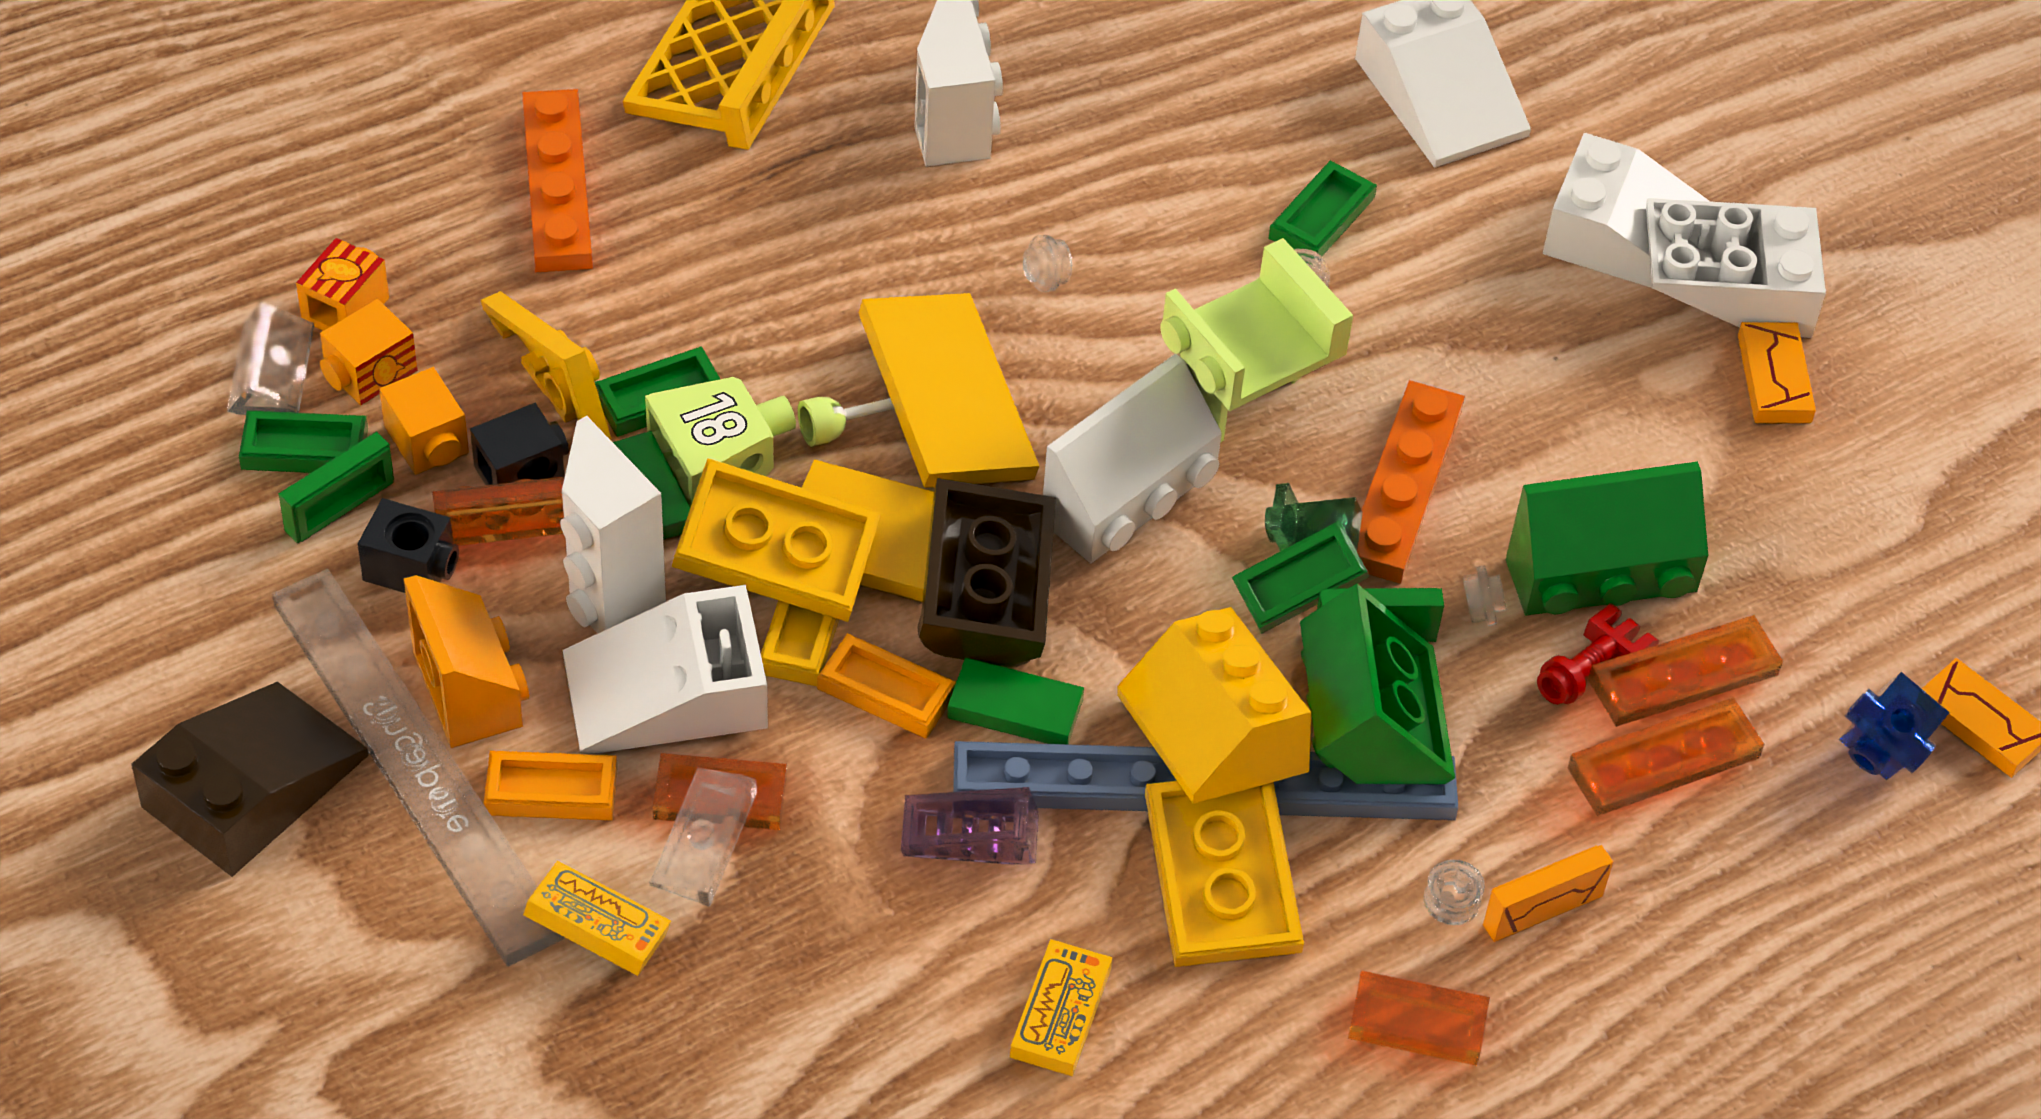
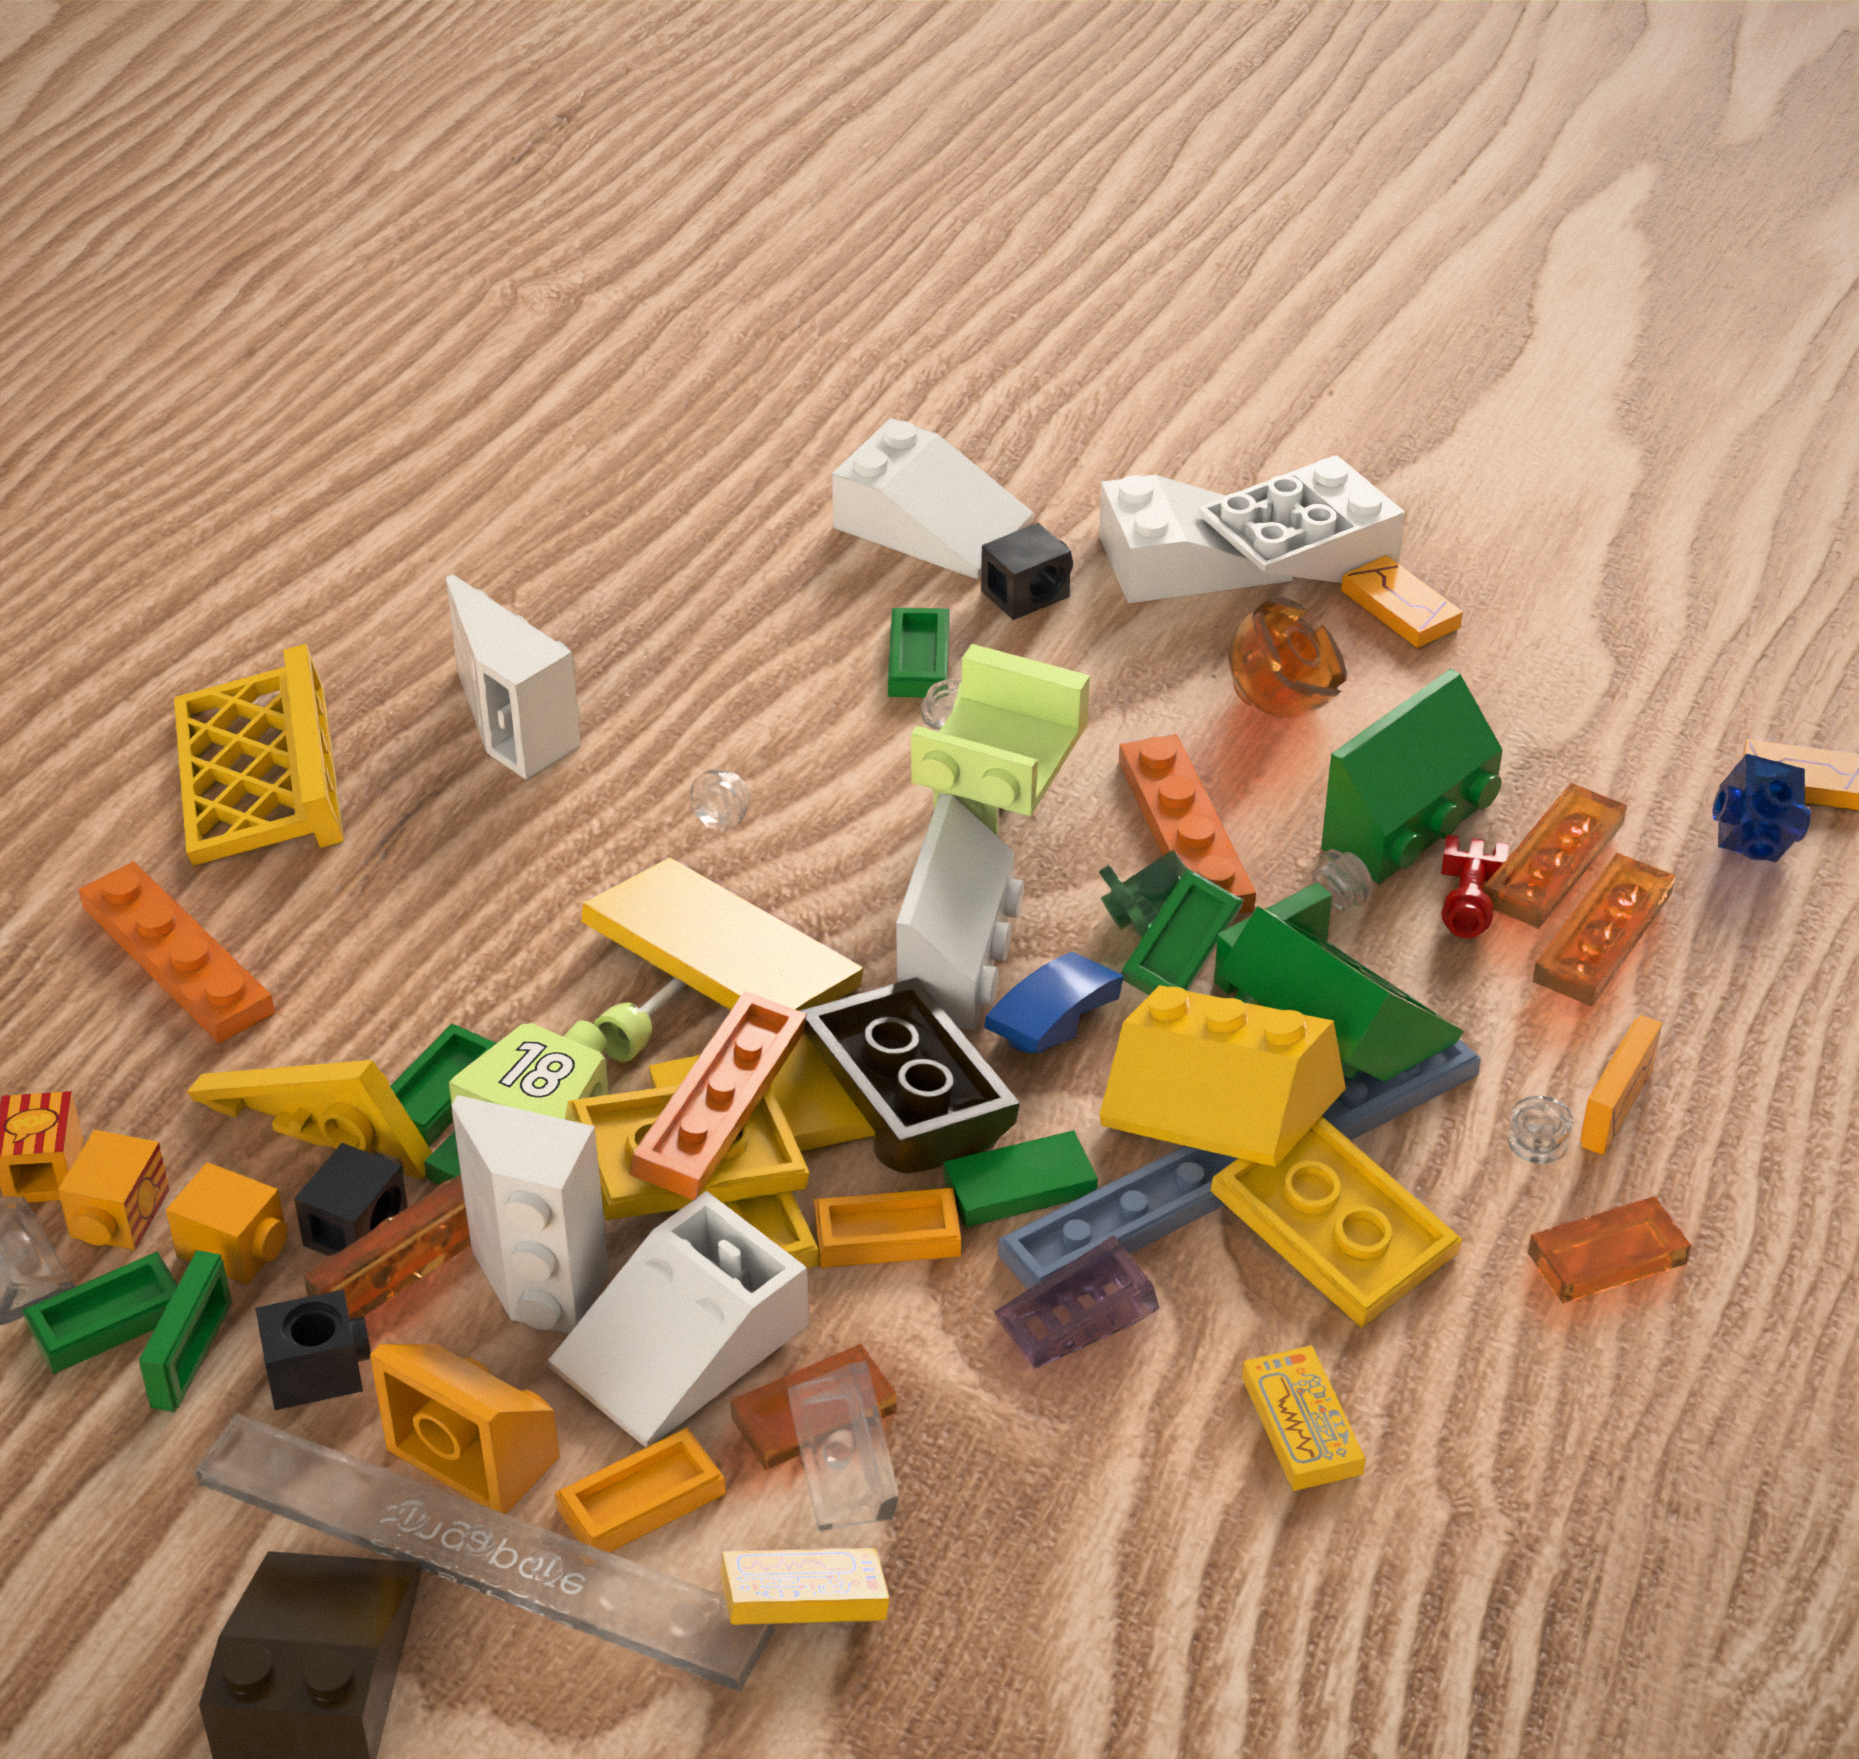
camera: 30 degrees left, 10 degrees down
(816, 513) = (718, 1095): none -> plate
(1149, 572) = (1049, 1002): none -> blue slope
(1469, 182) = (1026, 571): none -> black brick
(1602, 377) = (1284, 662): none -> clear orange cylinder

